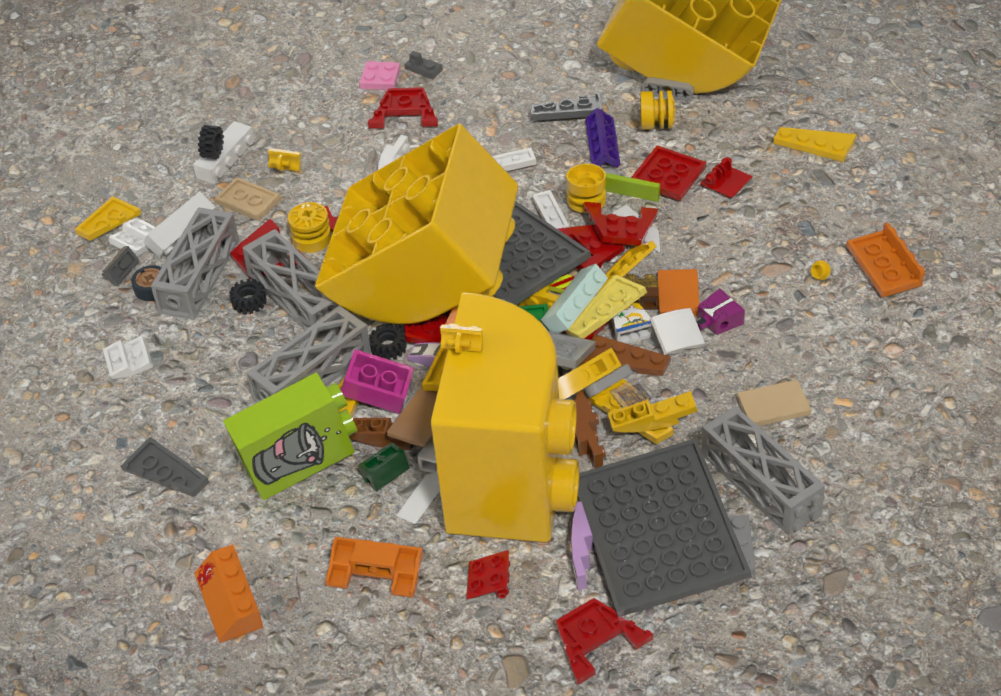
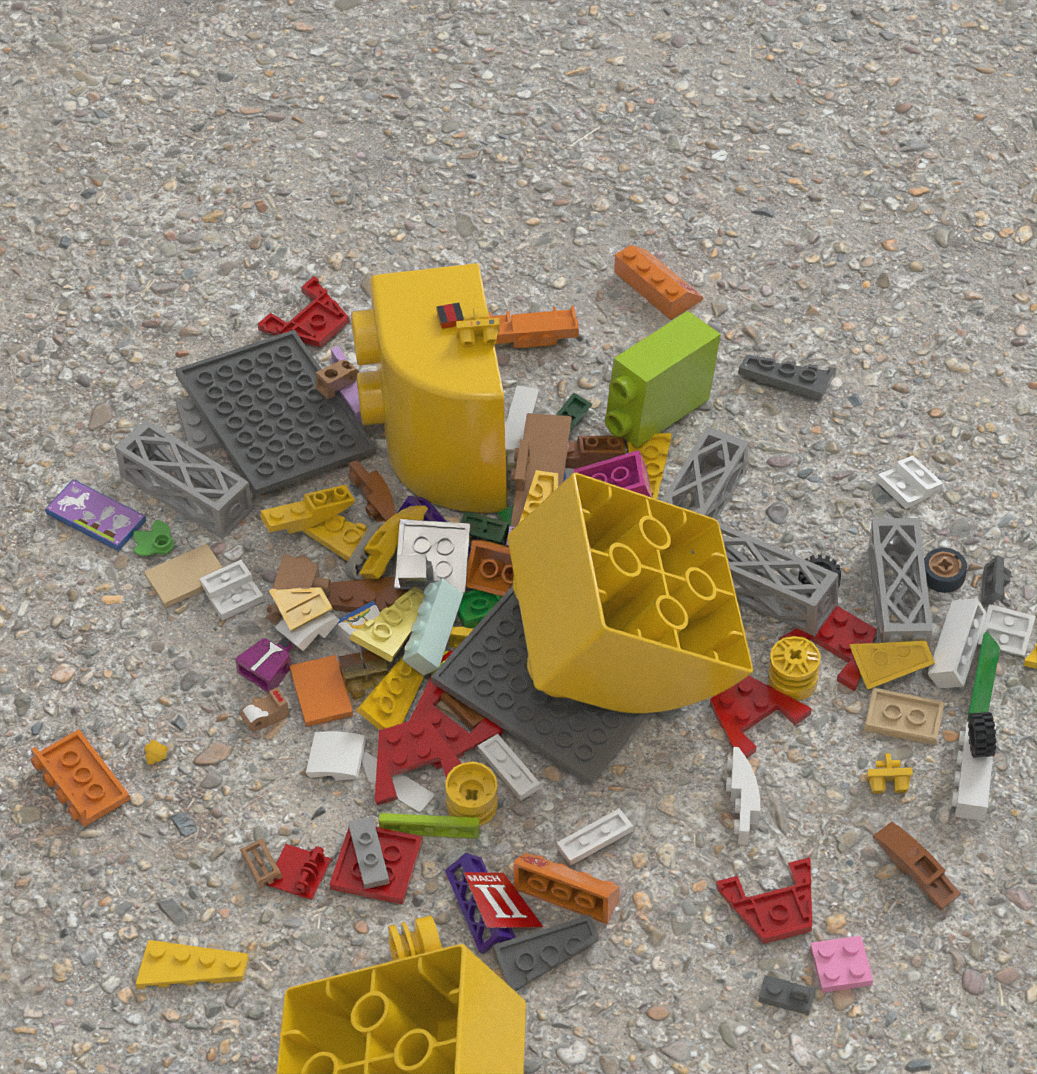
camera: 160 degrees right, 5 degrees up
(197, 186) = (984, 675): none -> green slope
(249, 220) = (889, 661): none -> yellow wing
(301, 108) = (918, 863): none -> dark orange slope
(481, 363) = (449, 314): none -> tile
(540, 128) = (565, 887): none -> orange slope
(582, 311) = (414, 570): none -> brick
(589, 130) = (500, 901): none -> red sticker
(589, 526) = (335, 377): none -> medium nougat leg
(633, 393) = (334, 537): piece -> none
(673, 170) = (368, 852): none -> light grey plate
(677, 357) = (296, 573): none -> medium nougat torso
(679, 243) = (336, 755): none -> white slope
(679, 324) = (300, 605): none -> yellow wing
(728, 281) = (266, 711): none -> medium nougat leg
(735, 378) = (231, 590): none -> white slope
(756, 198) = (268, 877): none -> medium nougat tile
(798, 438) = (155, 541): none -> bright green plate
(851, 475) = (95, 515): none -> tile

